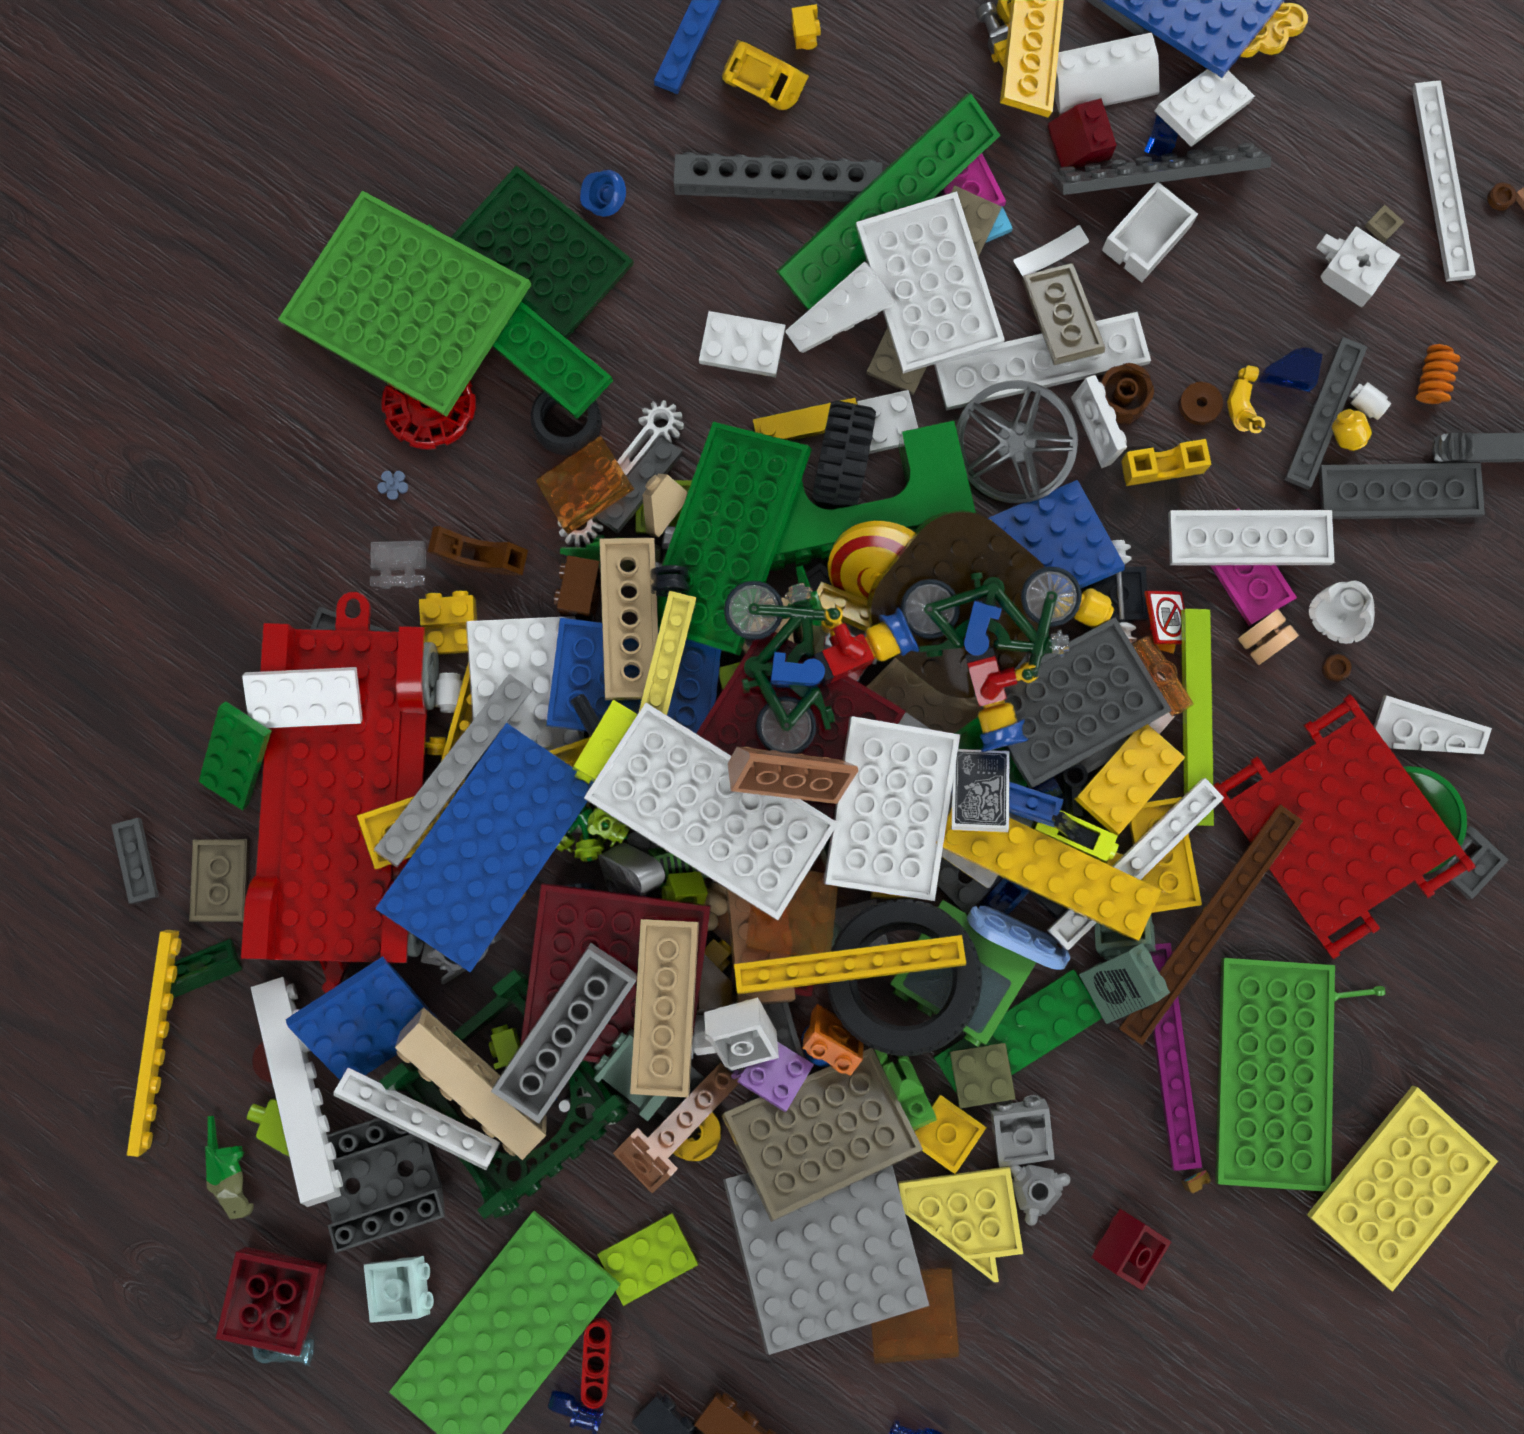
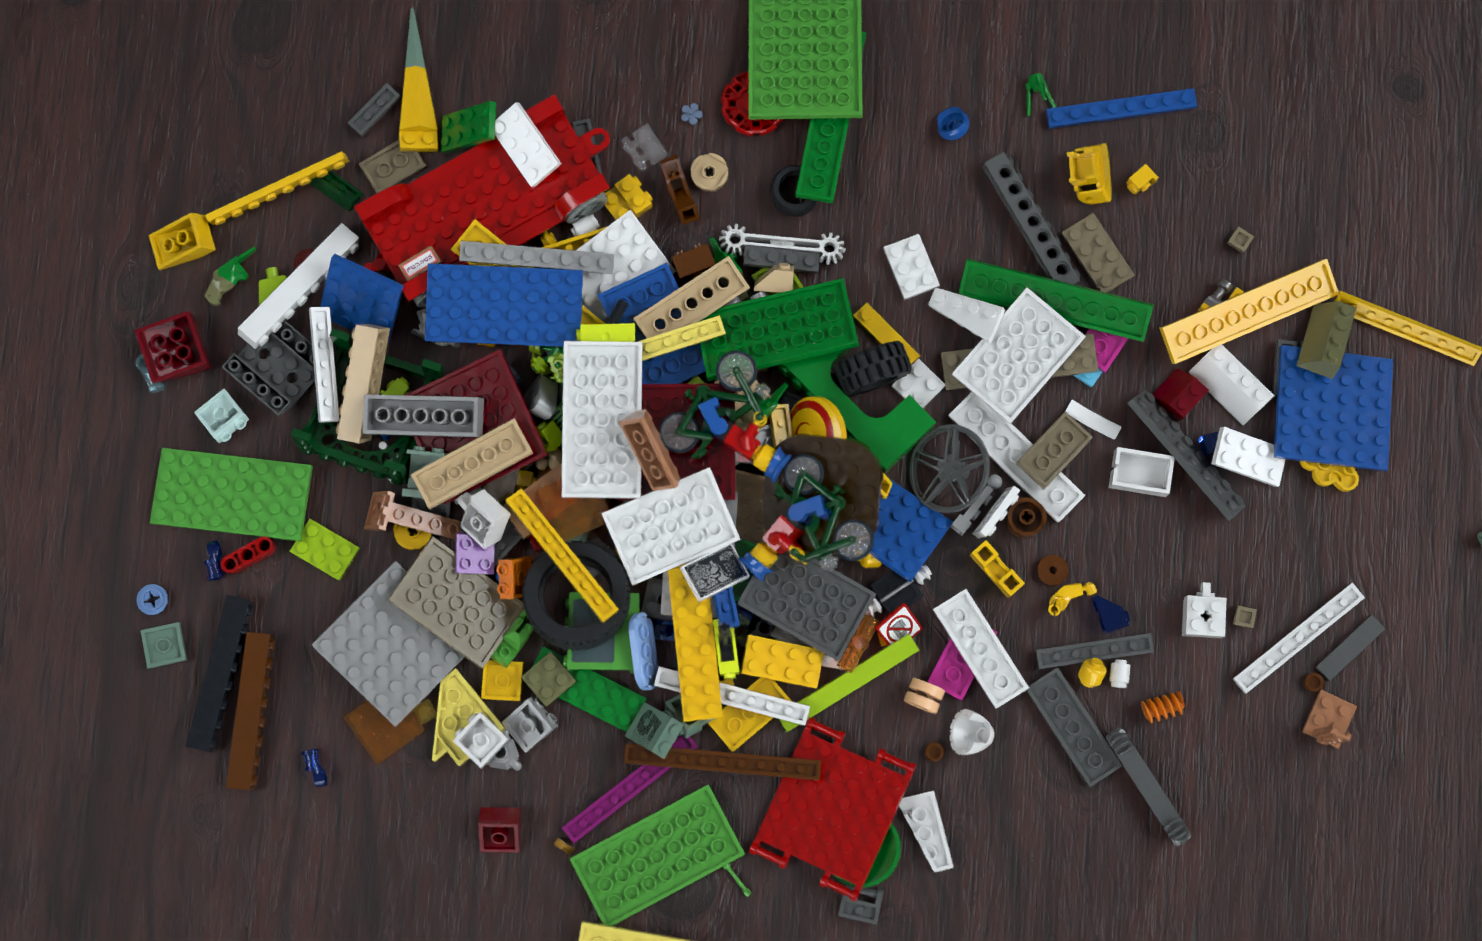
camera: 55 degrees right, 0 degrees up
(141, 1204) = (182, 241): none -> yellow slope
(181, 814) = (417, 116): none -> yellow plate
(366, 919) = (419, 263): none -> tile
(484, 492) = (719, 168): none -> tan plate
(549, 246) = (893, 110): dark green plate -> none
(584, 485) = (759, 227): clear orange plate -> none
(617, 73) = (1037, 84): none -> green plant
(668, 579) = (727, 312): black wheel -> none
(860, 129) = (1097, 254): none -> dark tan plate
(929, 1254) = (425, 712): none -> clear yellow plate
(1010, 1207) = (480, 739): none -> white plate
(1085, 468) = (963, 522): none -> light grey plate
(1094, 608) = (874, 576): yellow head -> none
(1485, 133) = (1350, 648): none -> dark grey tile

